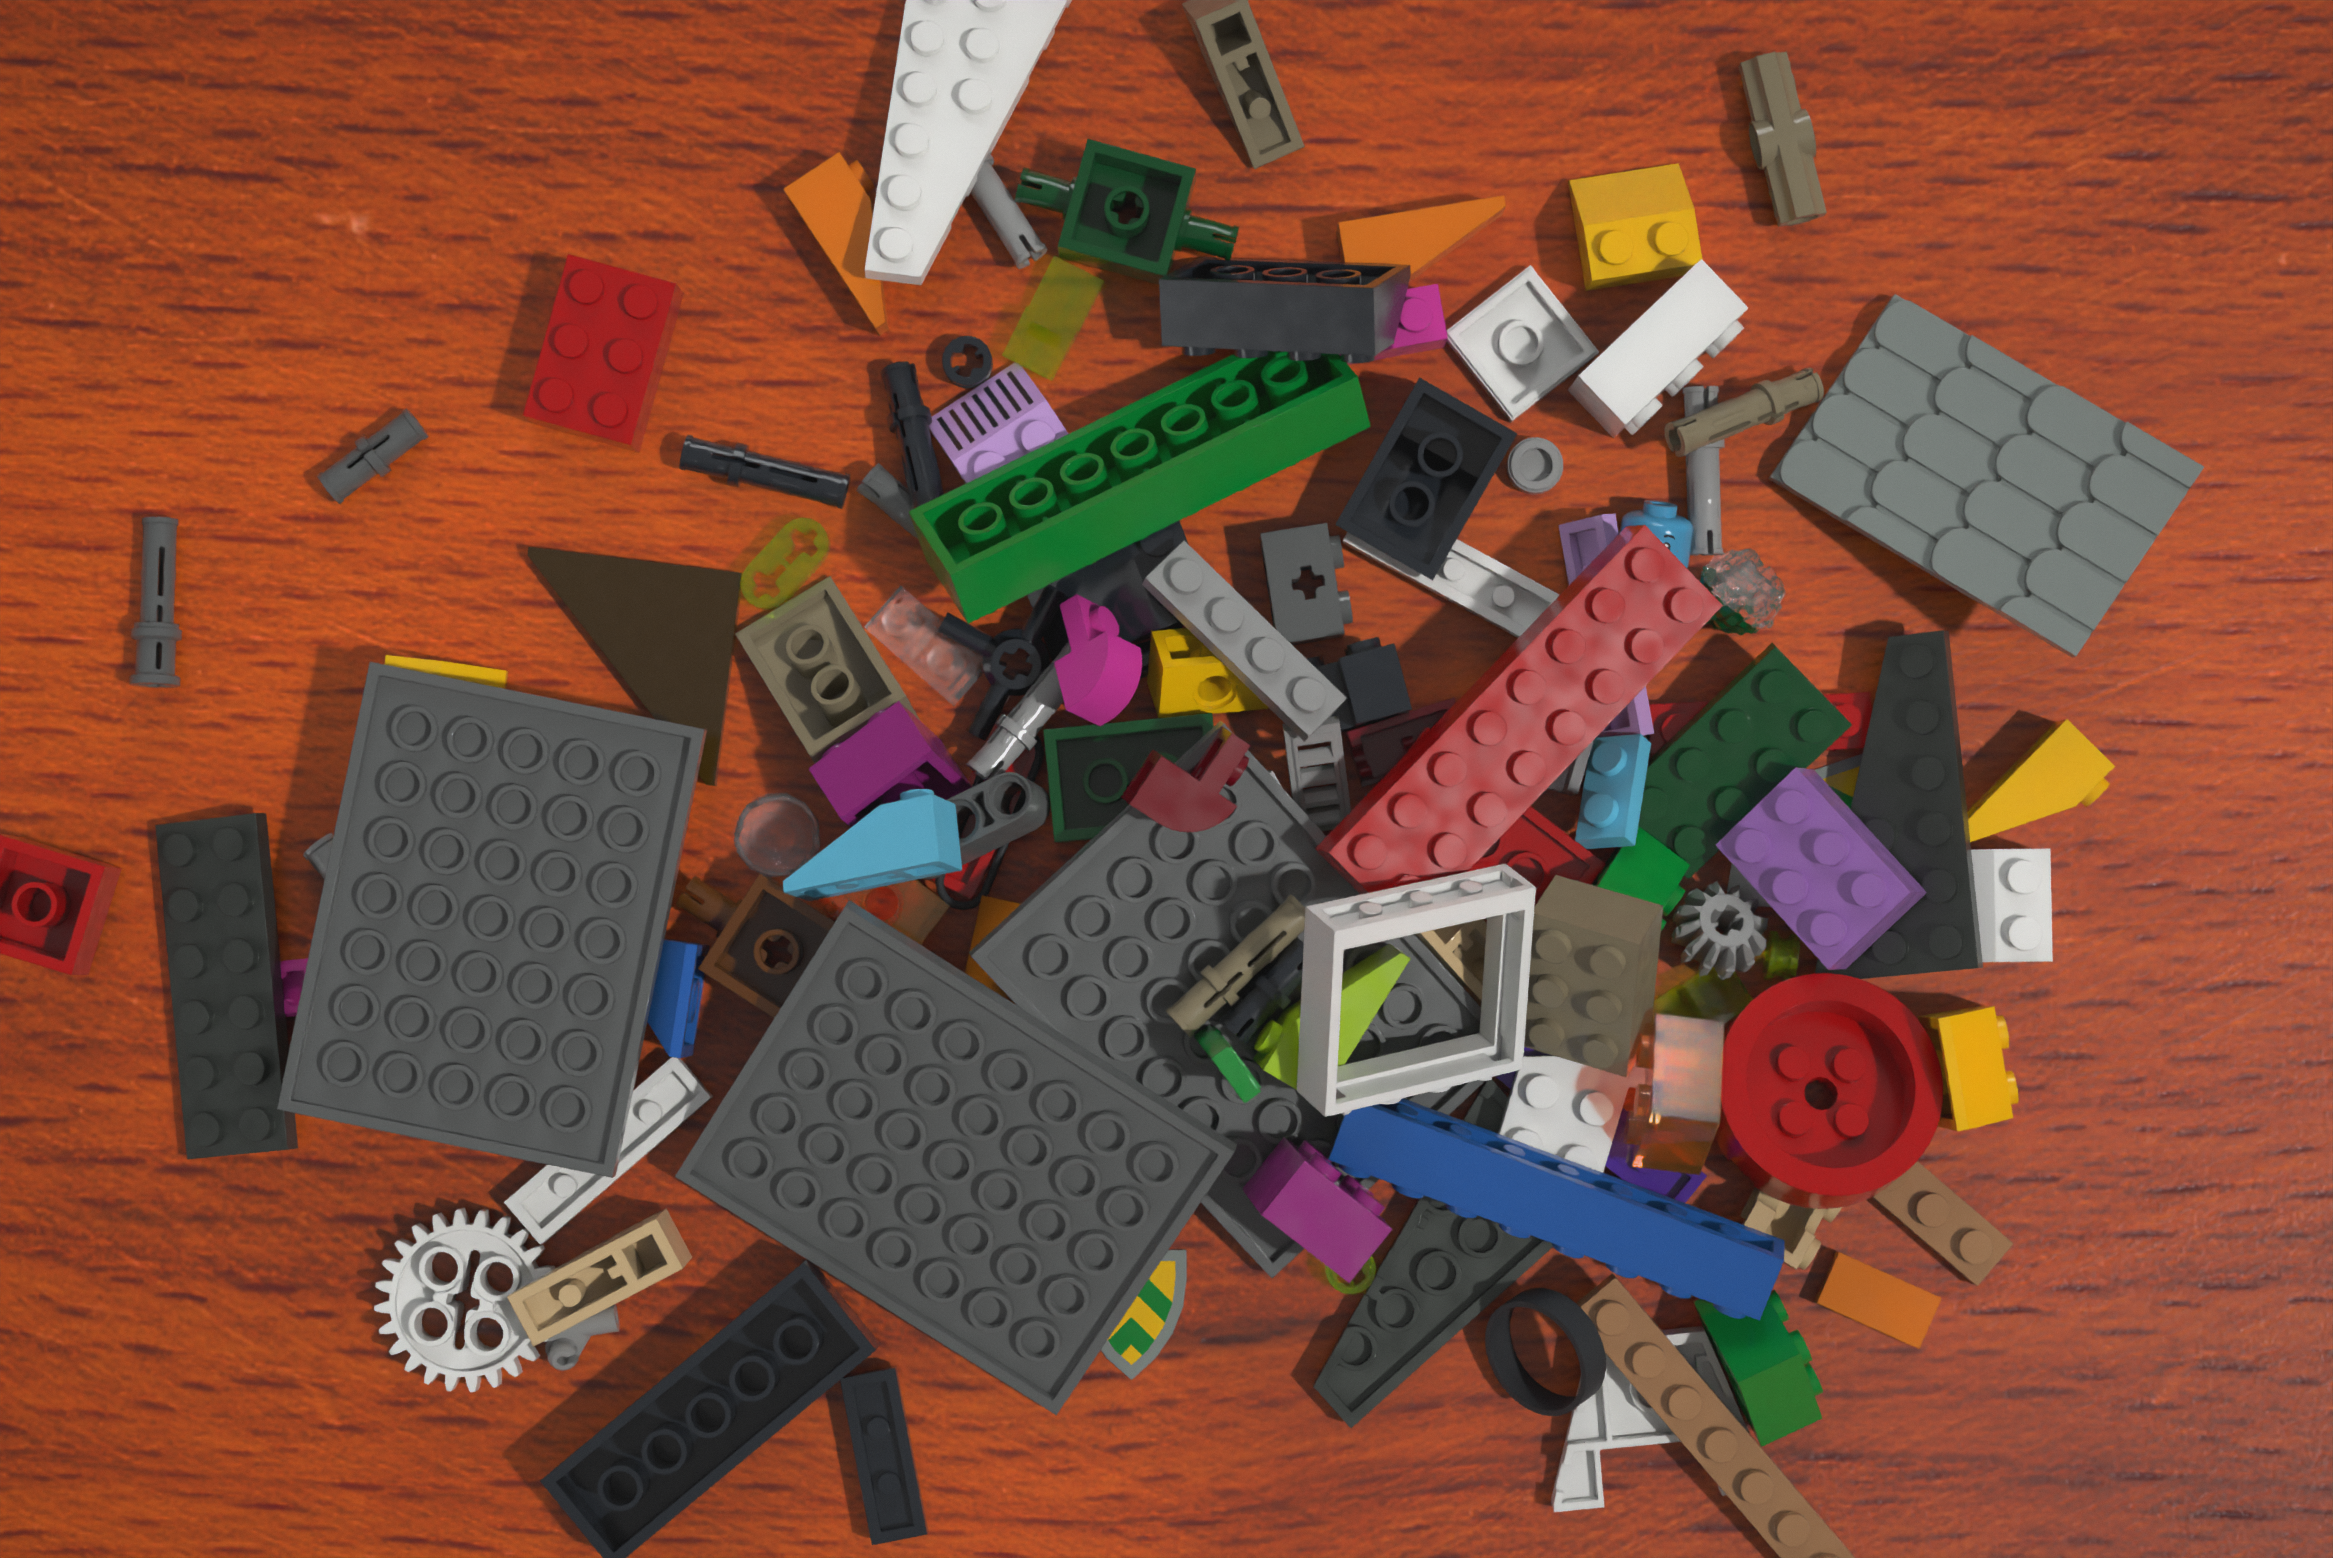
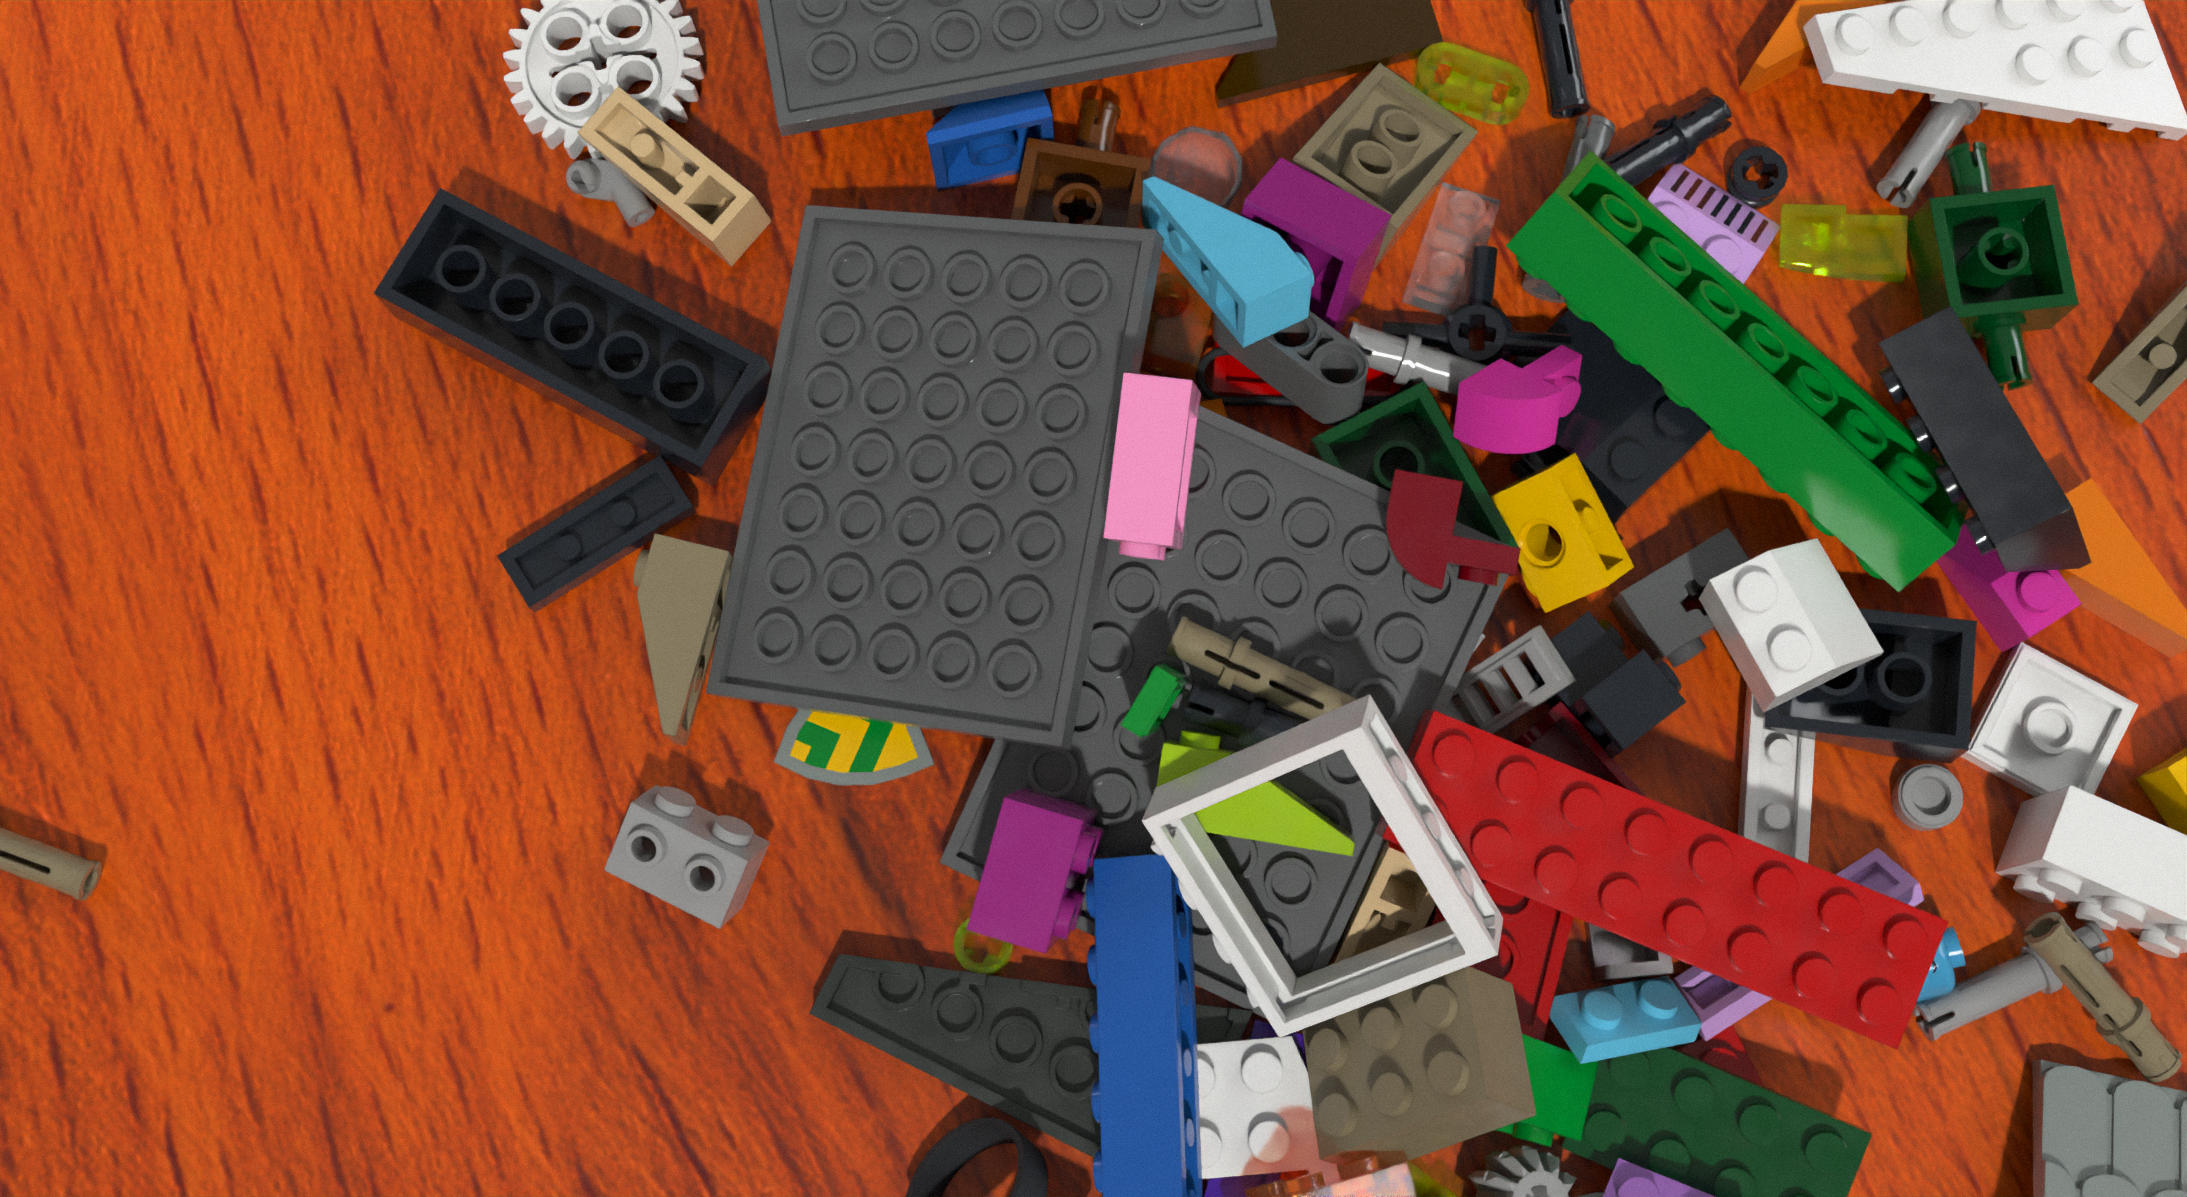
camera: 70 degrees right, 10 degrees down
(654, 1113) = (834, 156): white plate -> none
(985, 1412) = (680, 615): none -> dark tan slope
(1045, 992) = (1152, 465): none -> bright pink window
(1186, 1478) = (687, 854): none -> light grey brick
(1244, 641) = (1612, 545): light grey plate -> none
(1361, 524) = (1788, 622): none -> white slope
(1745, 589) = (1903, 1083): clear piece -> none

